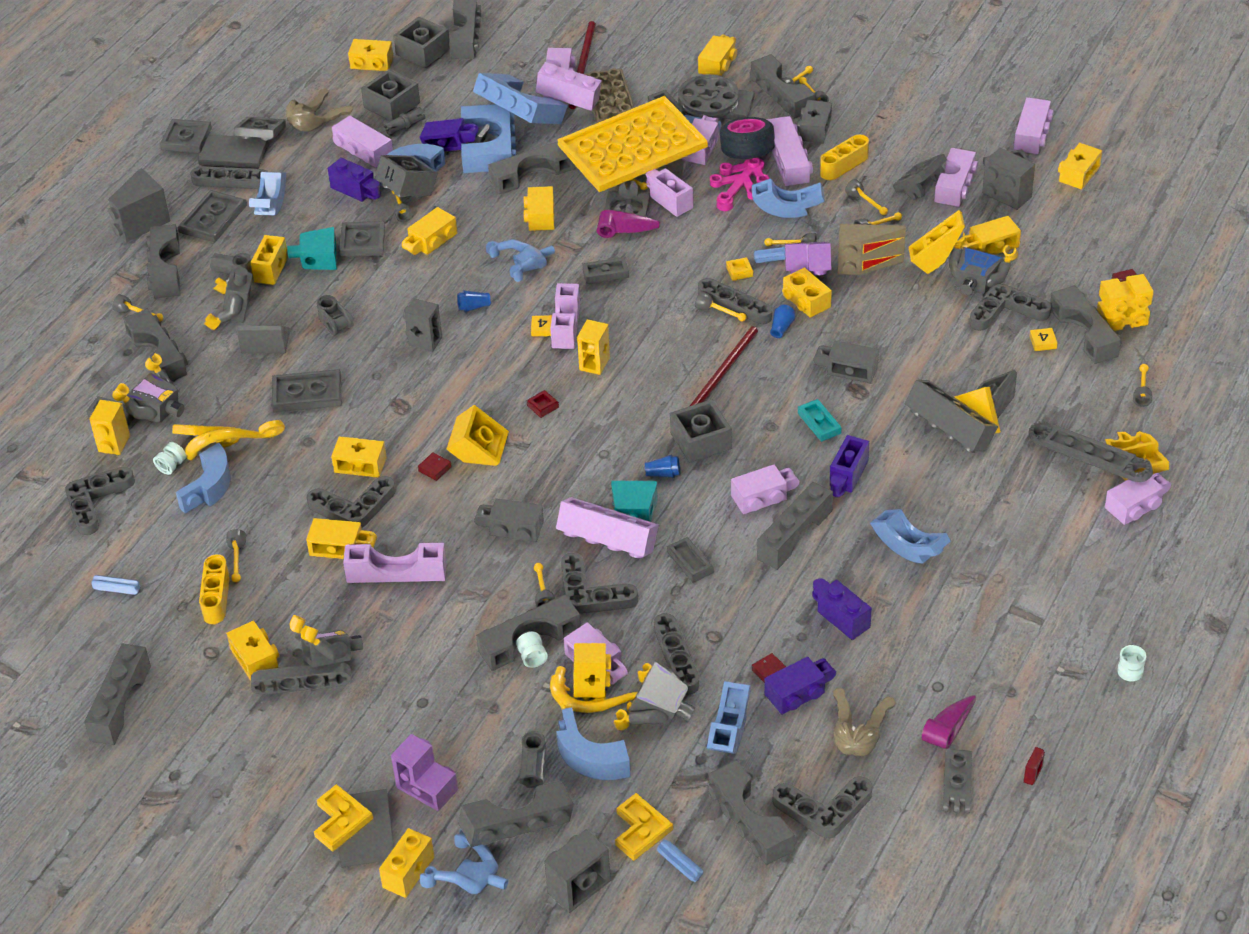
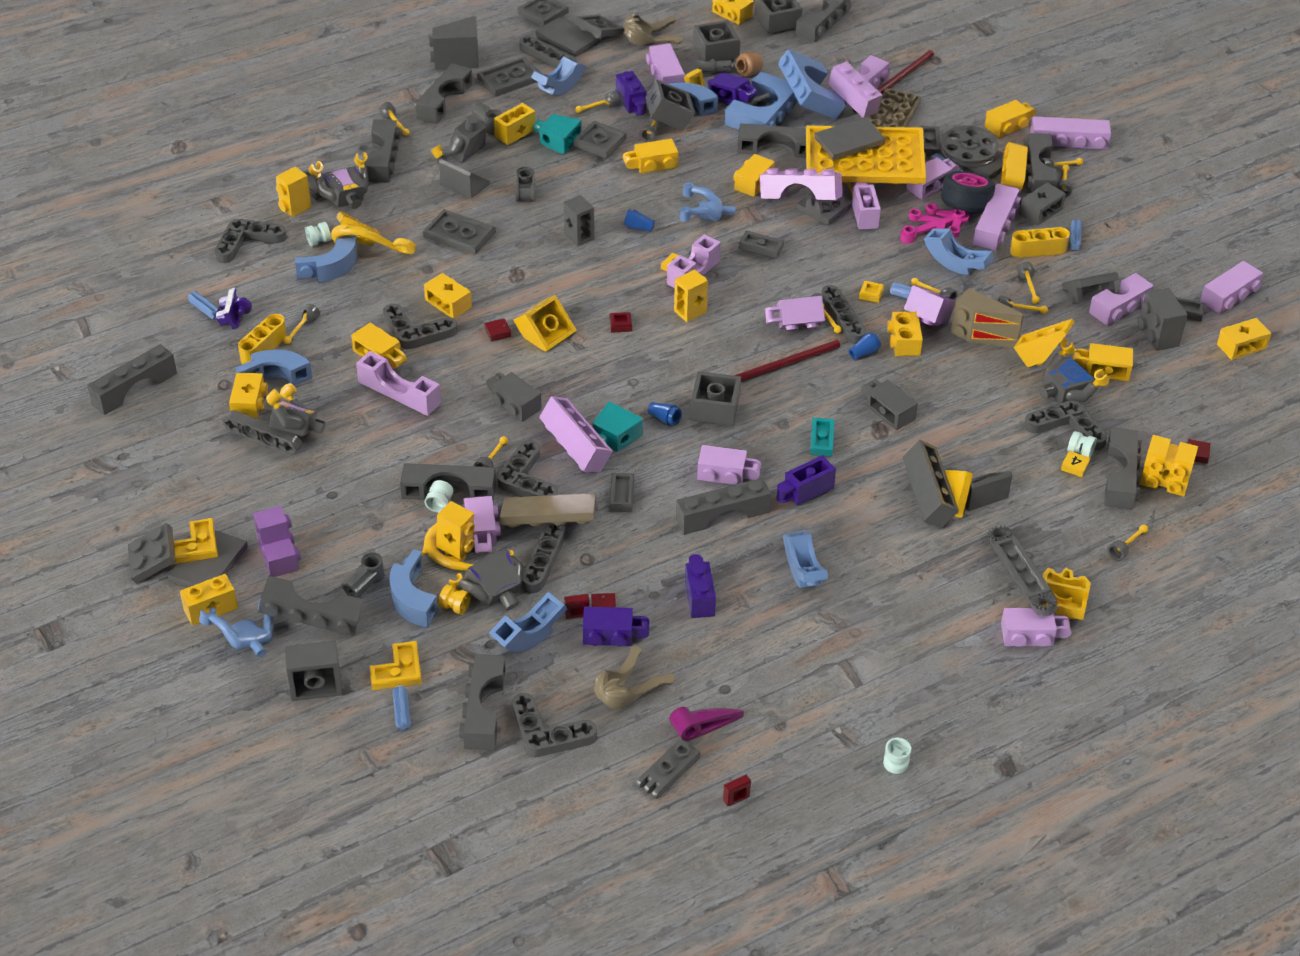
camera: 30 degrees right, 0 degrees up
(156, 570) = (232, 309): none -> dark purple hips
(255, 604) = (278, 364): none -> medium blue arch
(306, 850) = (151, 553): none -> dark grey plate
(337, 195) = (611, 99): none -> hinge
(401, 139) = (694, 77): none -> yellow plate
(439, 104) = (749, 64): none -> medium nougat head
(610, 133) = (849, 138): none -> dark grey tile
(622, 222) = (807, 213): magenta piece -> none
(623, 186) = (824, 184): none -> arch
(638, 735) = (454, 599): none -> yellow wheel
(647, 608) = (548, 509): none -> dark tan tile
(700, 317) = (797, 313): none -> lavender brick
(754, 678) = (575, 605): none -> dark red tile
(763, 97) = (1014, 165): none -> yellow beam
(783, 44) = (1074, 132): none -> lavender brick
(860, 129) = (1075, 234): none -> medium blue axle
(1037, 319) = (1082, 444): none -> light aqua wheel

